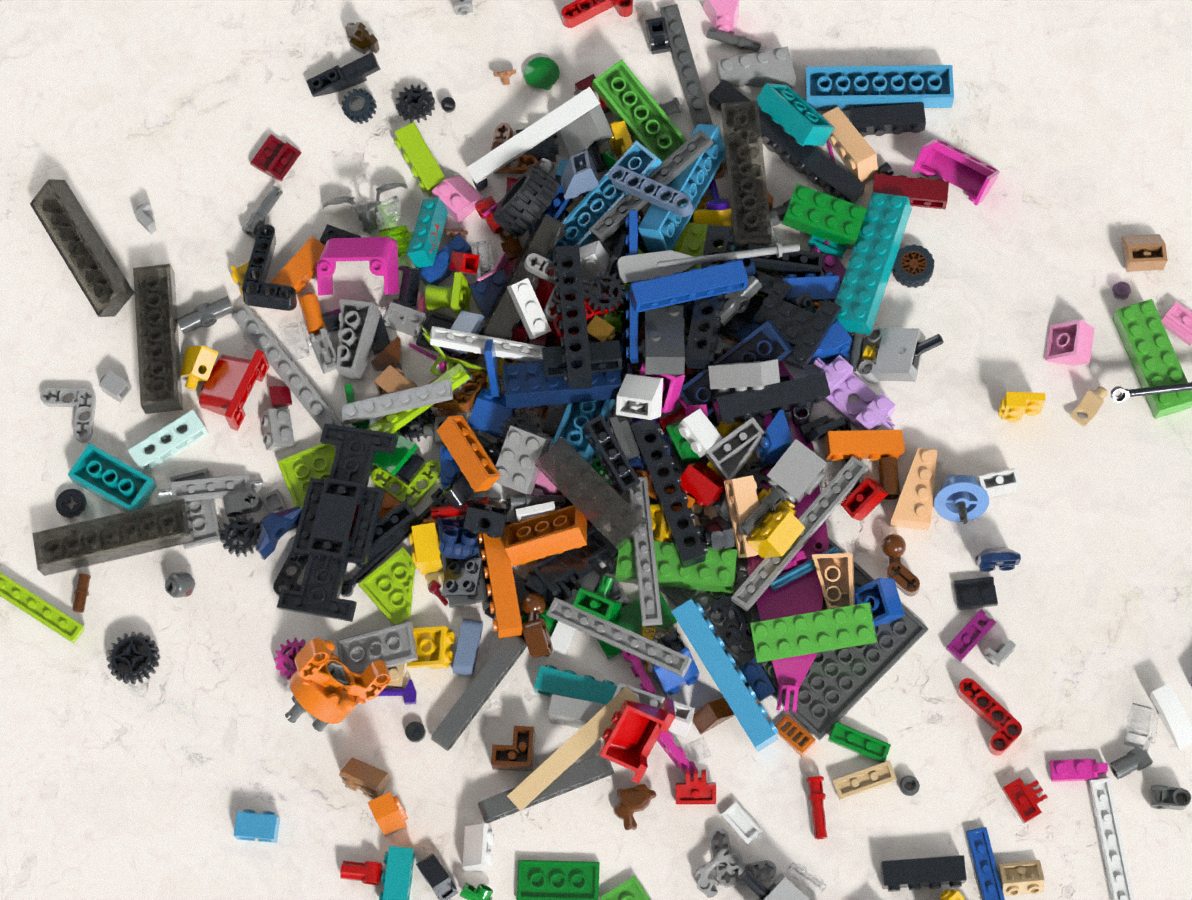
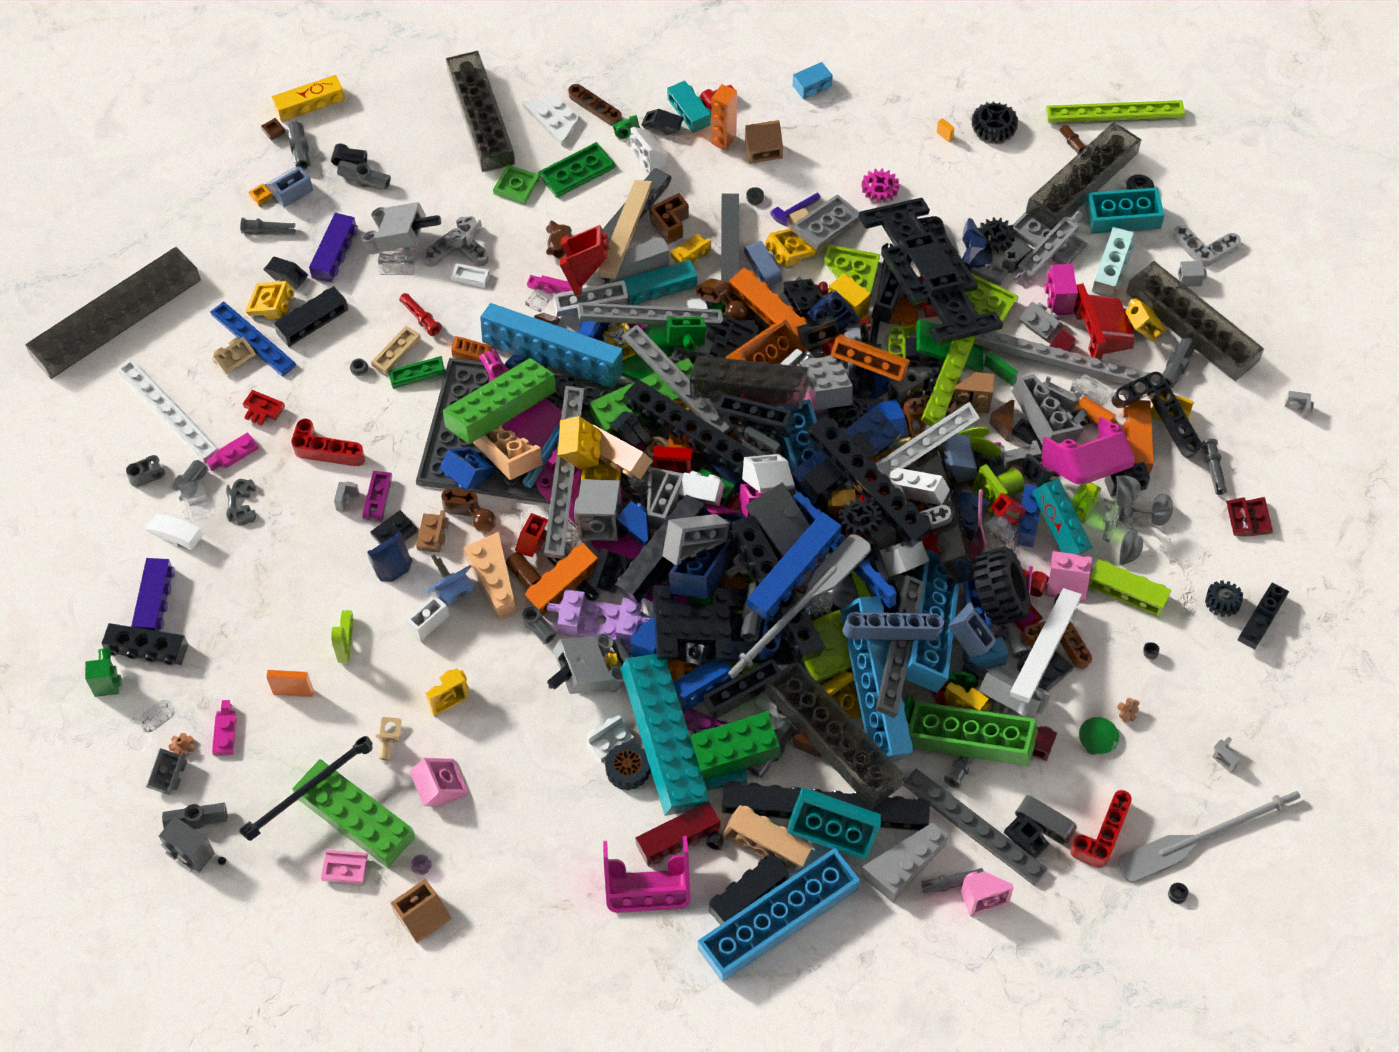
camera: 140 degrees right, 10 degrees down
(81, 248) = (1322, 343): clear smoke brick -> none
(179, 584) = (1007, 178): dark grey head -> none
(184, 680) = (945, 130): none -> light orange tile
(239, 436) = (1061, 289): none -> dark pink brick
(328, 687) = (834, 167): orange piece -> none
(360, 38) = (1282, 658): dark brown plate -> none
(397, 402) = (961, 370): light grey plate -> none
(415, 103) = (1170, 629): black gear -> none
(454, 233) = (1043, 545): nougat plant -> none
(492, 368) = (910, 427): blue tile -> none
(519, 708) = (691, 249): none -> yellow bracket
(633, 38) = (1052, 822): none -> dark grey beam
(672, 641) = (607, 336): black wheel -> none
(696, 790) = (518, 271): red hinge -> none
(717, 203) = (837, 694): dark purple piece -> none
(767, 505) = (603, 463): dark grey pin -> none
(908, 423) = (539, 625): none -> dark grey piece
(911, 297) = (607, 736): none -> white bracket
(943, 569) = (432, 532): none -> medium nougat bracket
(1085, 501) = (342, 637): none -> lime beam
(1104, 697) = (241, 516): none -> dark grey helmet
(1148, 494) = (290, 683): none -> orange tile

